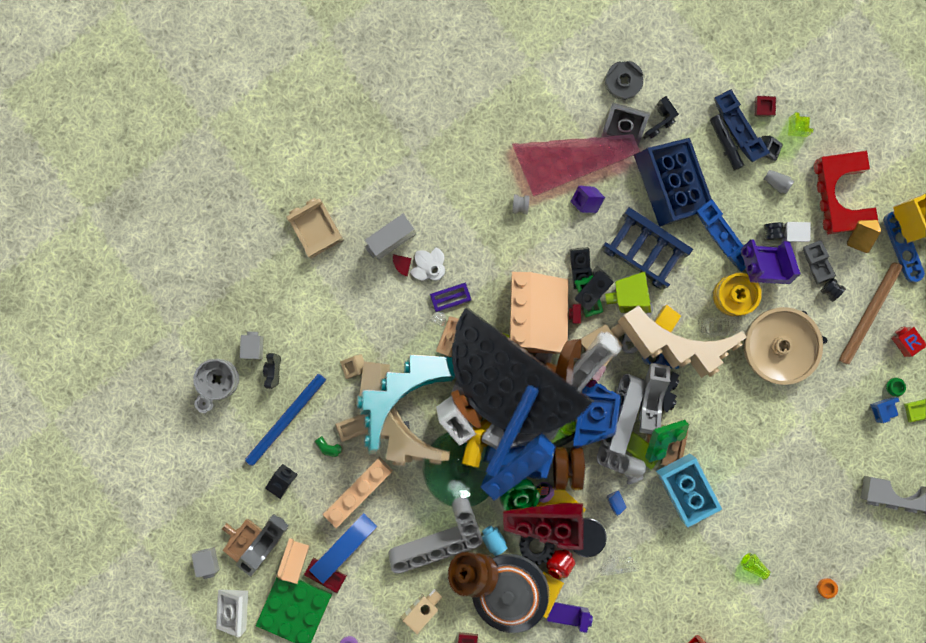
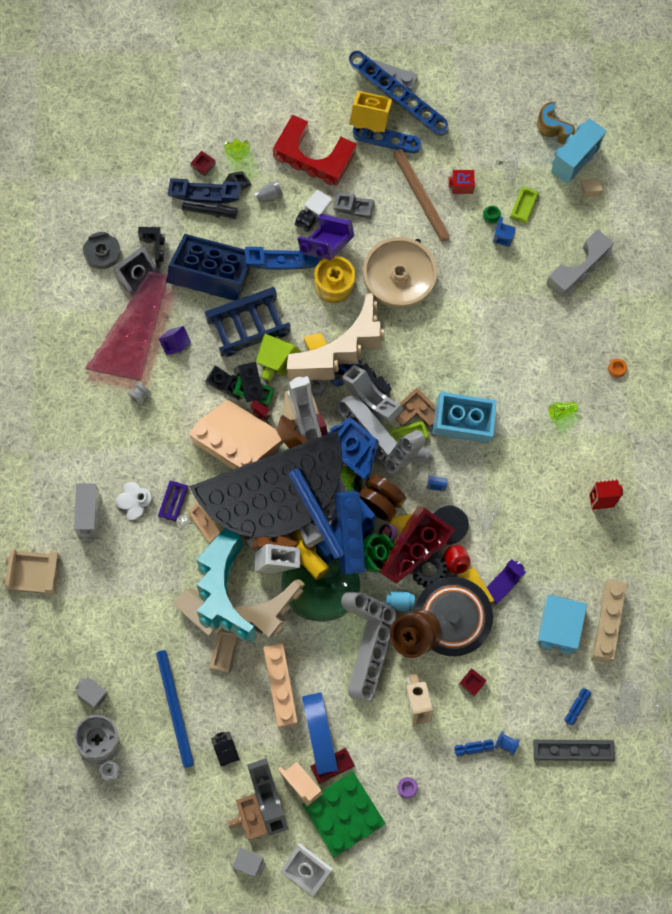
camera: 65 degrees left, 15 degrees down
(271, 370) = (123, 689): black piece -> none
(328, 450) = (227, 688): green arm -> none
(352, 366) = (171, 620): tan slope -> none
(402, 264) = (116, 521): dark red tile -> none
(663, 437) = (407, 407): green plate -> none
(833, 289) = (382, 208): black wheel -> none
(864, 235) = (356, 158): pearl gold slope -> none

